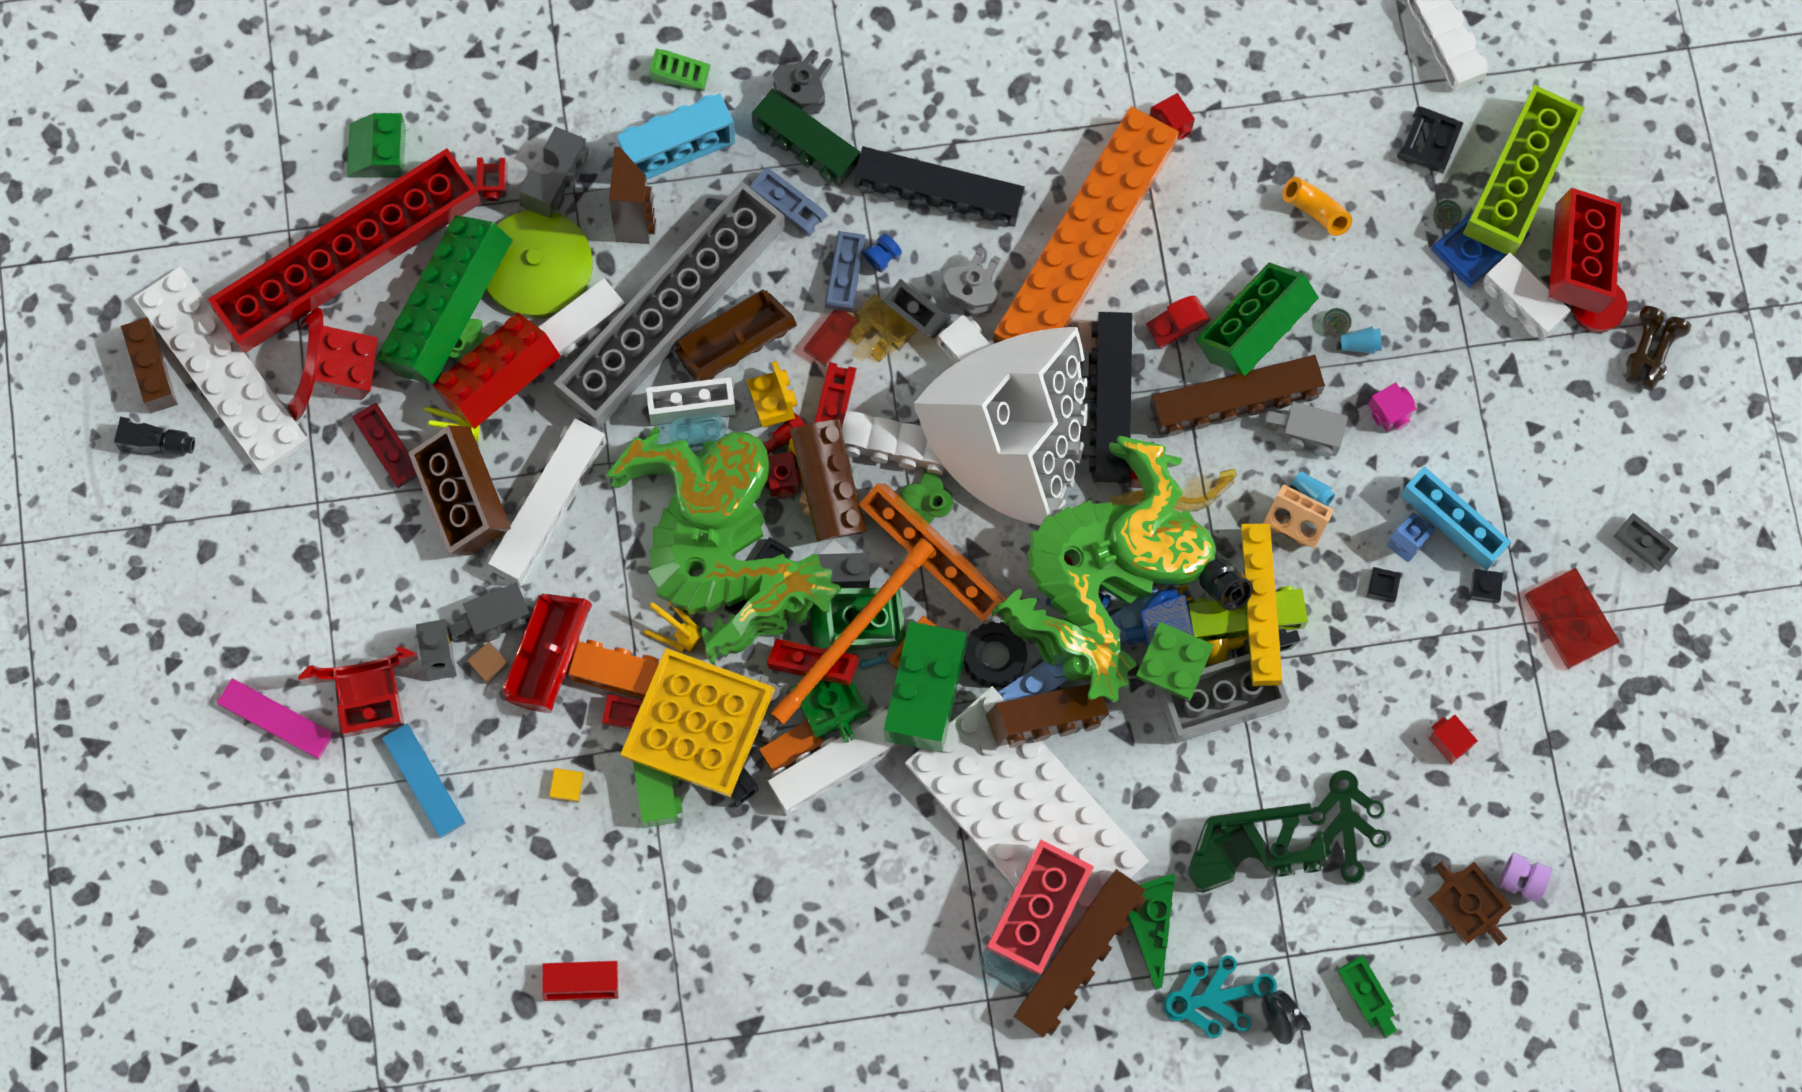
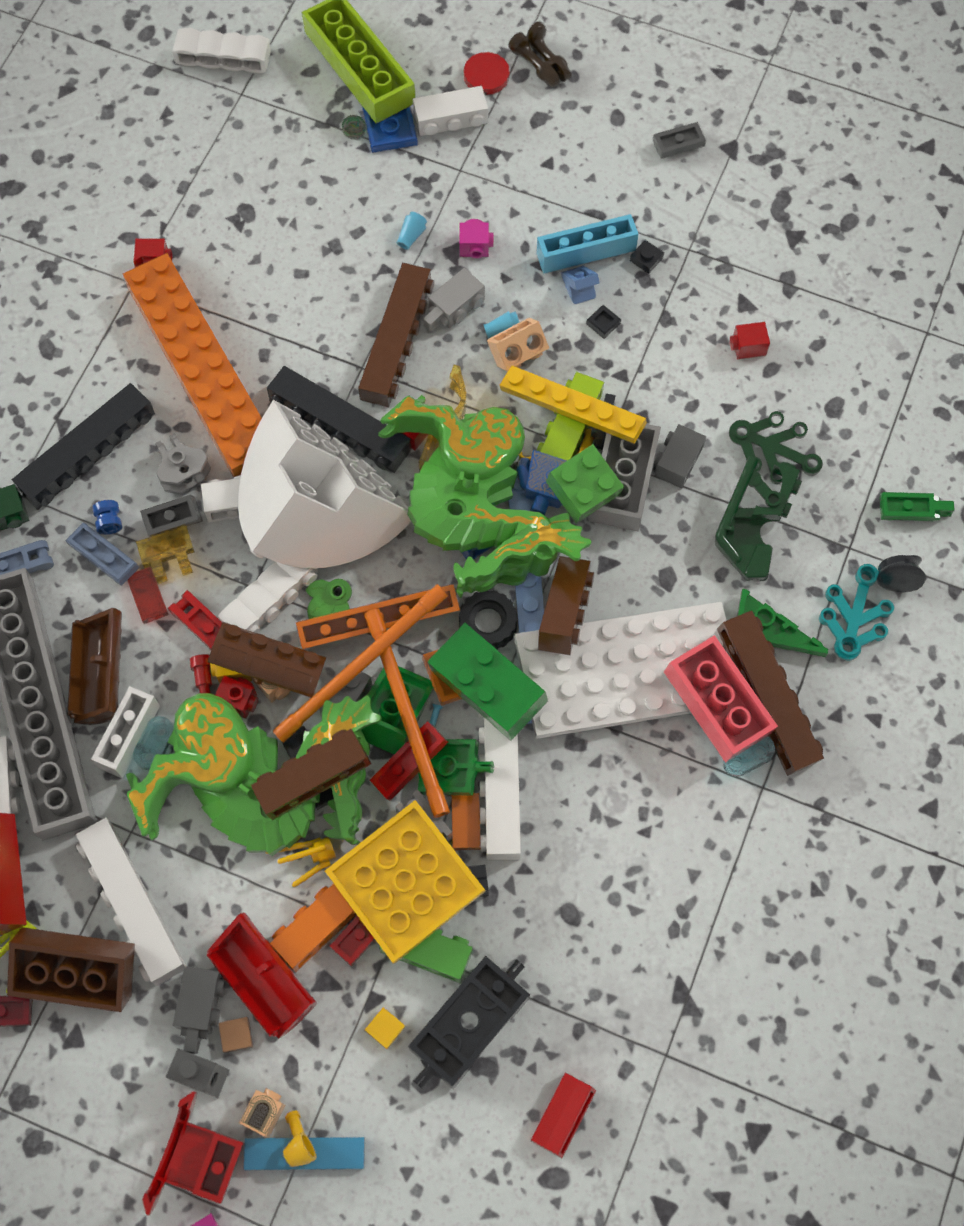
camera: 55 degrees left, 5 degrees down
(424, 773) = (299, 1149): none -> yellow bar
(436, 724) = (263, 1112): none -> brick
(642, 860) = (448, 1047): none -> black brick
(740, 582) = (310, 774): none -> reddish brown brick
(771, 397) = (166, 666): yellow bracket -> none
(956, 586) = (424, 606): none -> orange piece
(1180, 319) = (310, 342): red brick -> none
(1225, 584) = (543, 417): black wheel -> none
(1257, 318) = (348, 284): green brick -> none
(1278, 738) = (679, 456): none -> dark grey brick
(1317, 205) = (289, 200): light orange cylinder -> none
(1336, 322) = (384, 240): tile -> none
(1438, 144) = (297, 100): black plate -> none
(1470, 903) = (881, 399): reddish brown plate -> none
(1535, 881) = (884, 351): lavender wheel -> none
(1572, 618) = (705, 217): clear red plate -> none
(1585, 250) = (445, 50): red brick -> none

